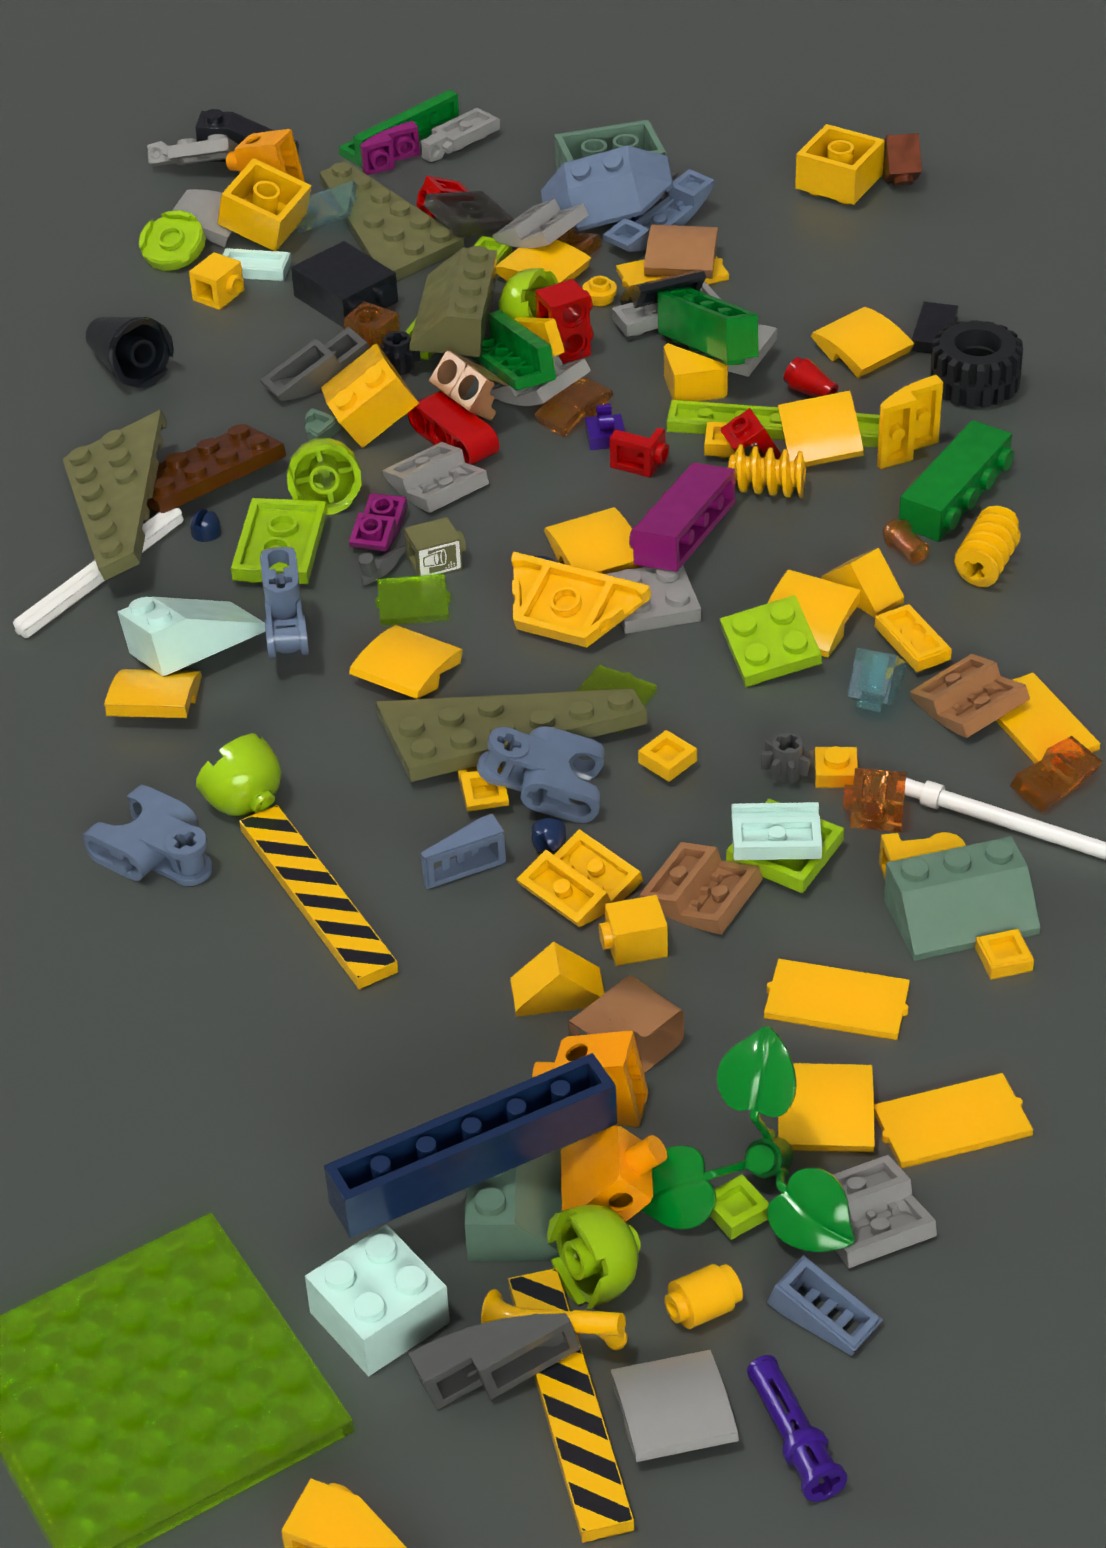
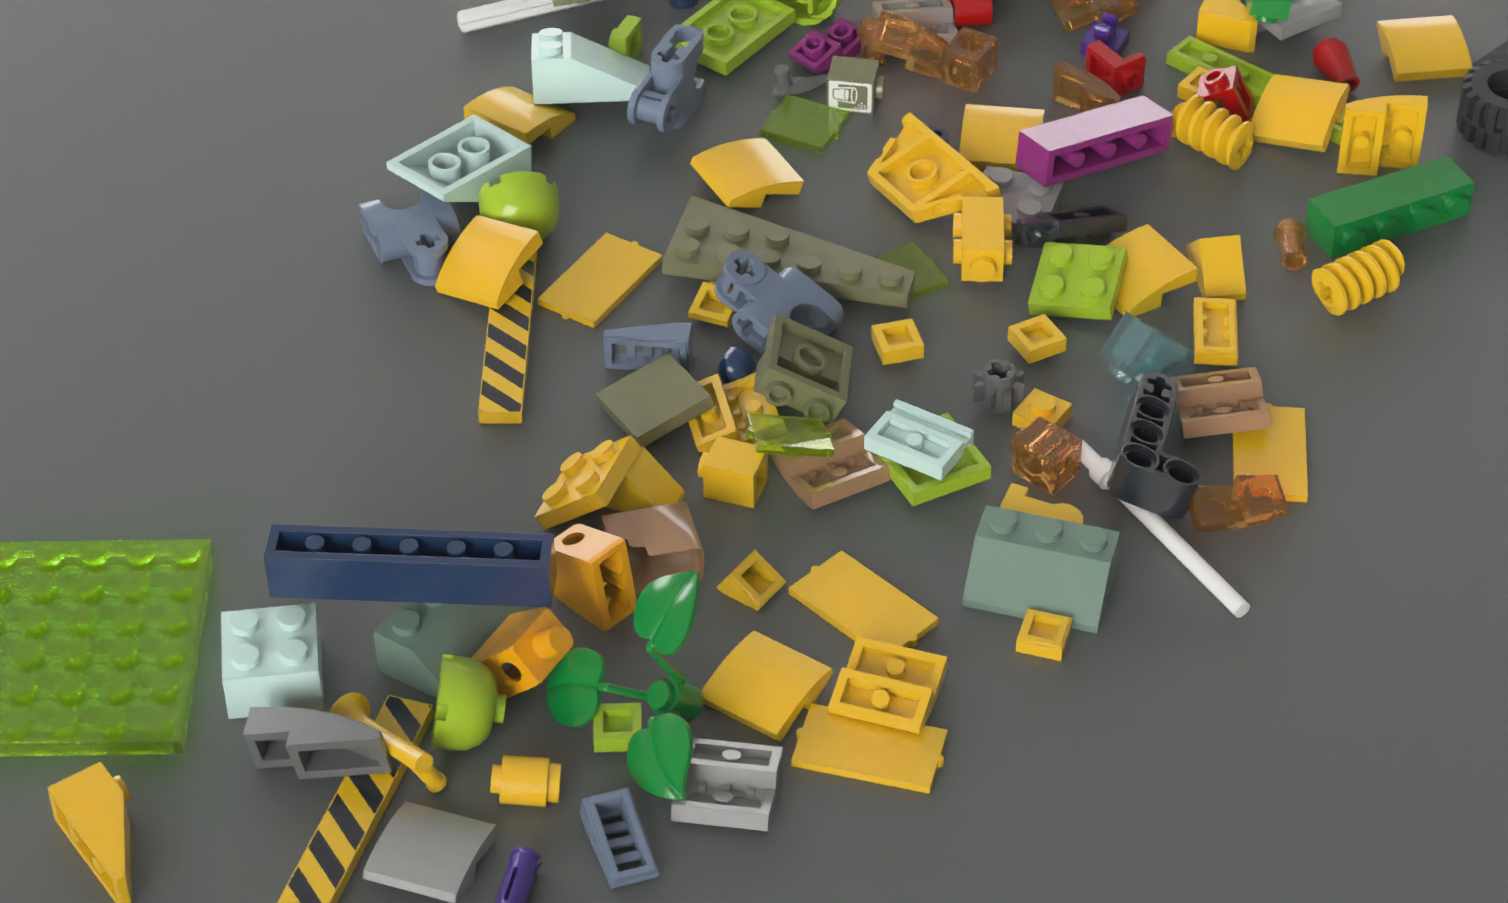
camera: 30 degrees right, 0 degrees up
(159, 752) = (462, 160): none -> light aqua slope
(195, 585) = (627, 37): none -> lime plate
(253, 837) = (487, 262): none -> yellow slope
(354, 812) = (600, 280): none -> yellow piece
(418, 504) = (866, 33): none -> clear orange pin
(456, 491) = (910, 42): none -> clear orange slope
(508, 898) = (654, 400): none -> olive tile
(513, 488) = (969, 59): none -> clear orange brick
(524, 997) = (587, 481): none -> yellow plate
(624, 814) = (804, 370): none -> olive plate
(635, 479) = (1080, 88): none -> clear orange slope
(661, 876) = (789, 435): none -> clear neon green piece
(665, 637) = (982, 241): none -> yellow brick
(724, 595) = (1066, 225): none -> black hinge
(725, 1020) = (752, 581): none -> yellow slope
(779, 704) = (1037, 338): none -> yellow plate
(927, 1057) = (889, 685): none -> yellow slope
(958, 761) = (1140, 468): none -> black beam

